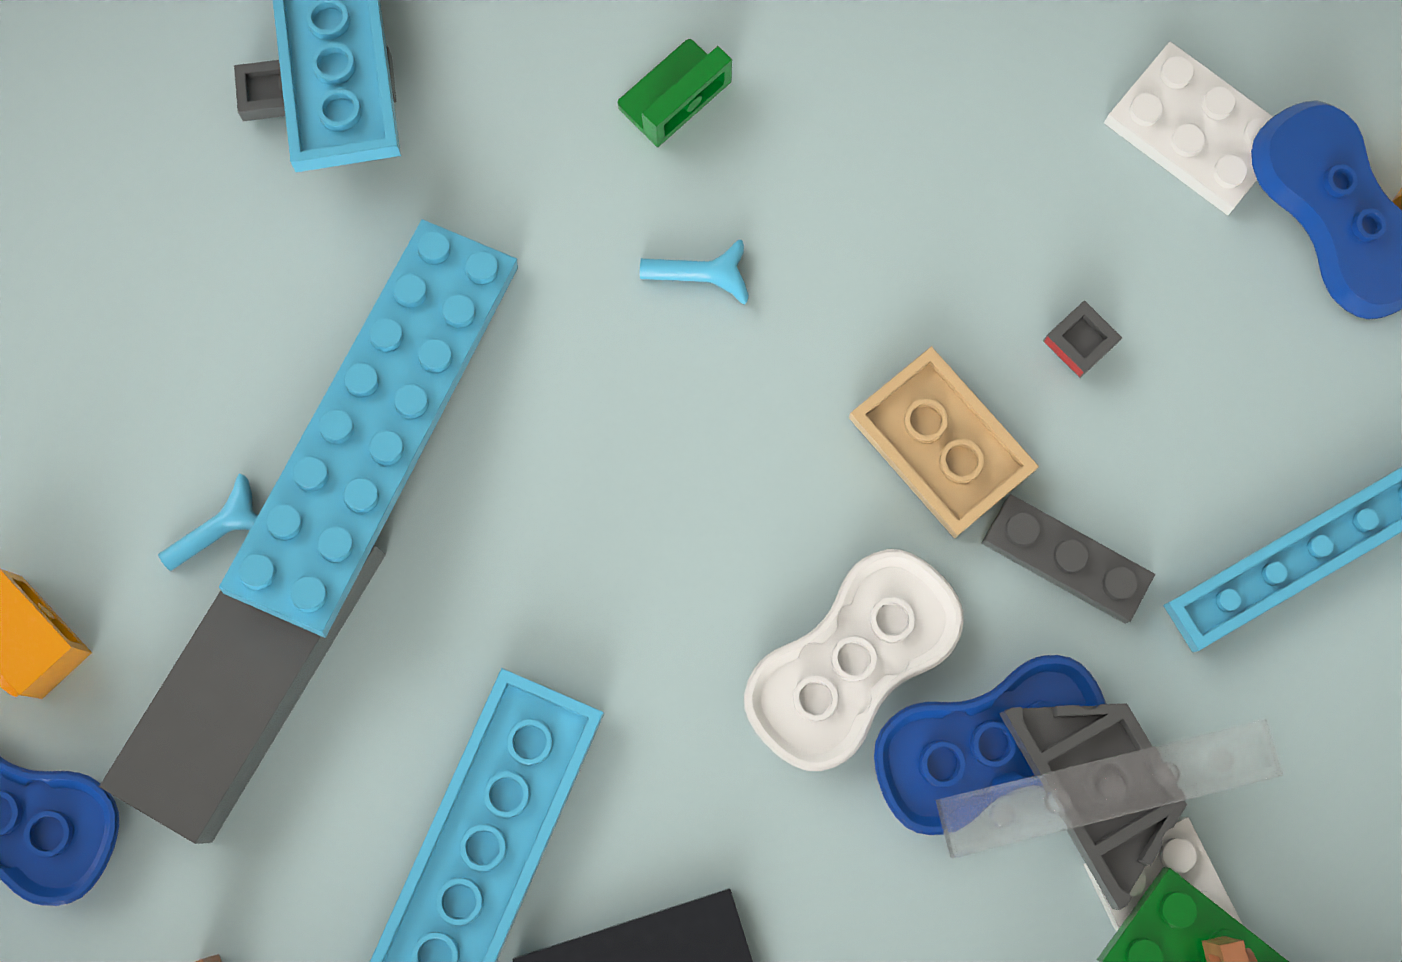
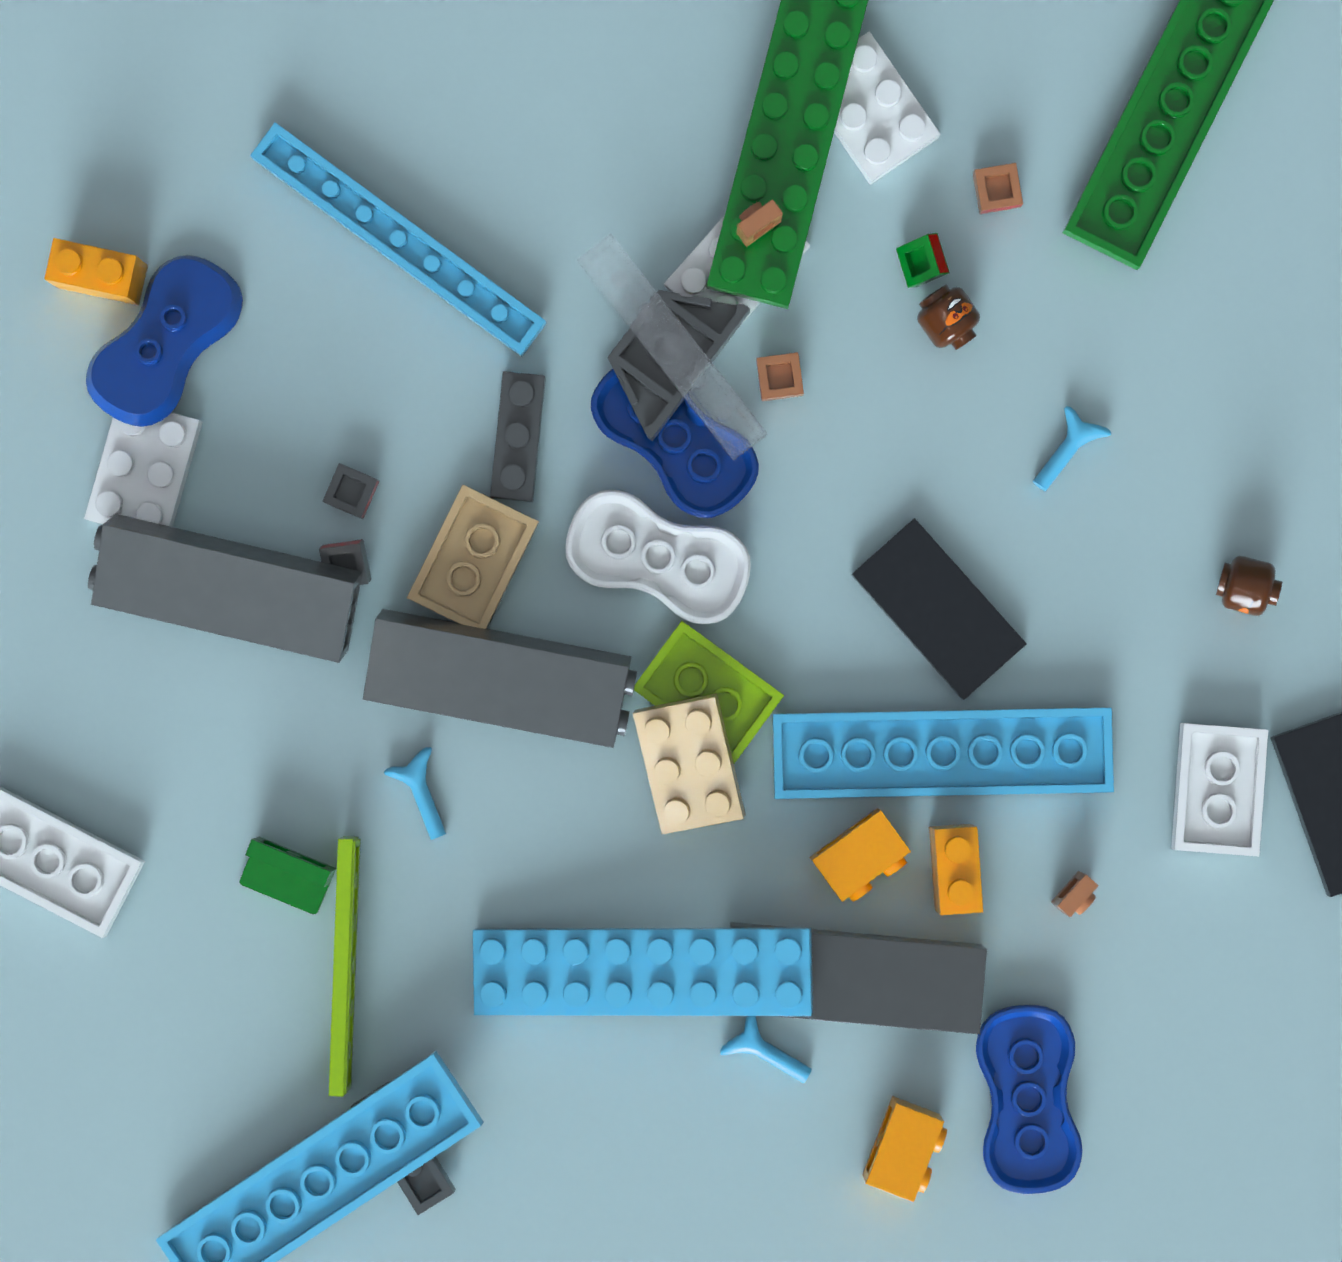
camera: 115 degrees left, 10 degrees up
(310, 851) = (956, 869): none -> light orange brick
(384, 741) = (861, 856): none -> light orange brick
(546, 104) = (344, 966): none -> lime tile
(590, 585) = (689, 764): none -> tan plate
(665, 646) = (696, 667): none -> lime plate
(790, 409) = (498, 678): none -> dark grey brick
(999, 296) = (347, 555): none -> dark grey plate
(1013, 910) = (779, 376): none -> nougat plate
(1028, 153) = (224, 587): none -> dark grey brick

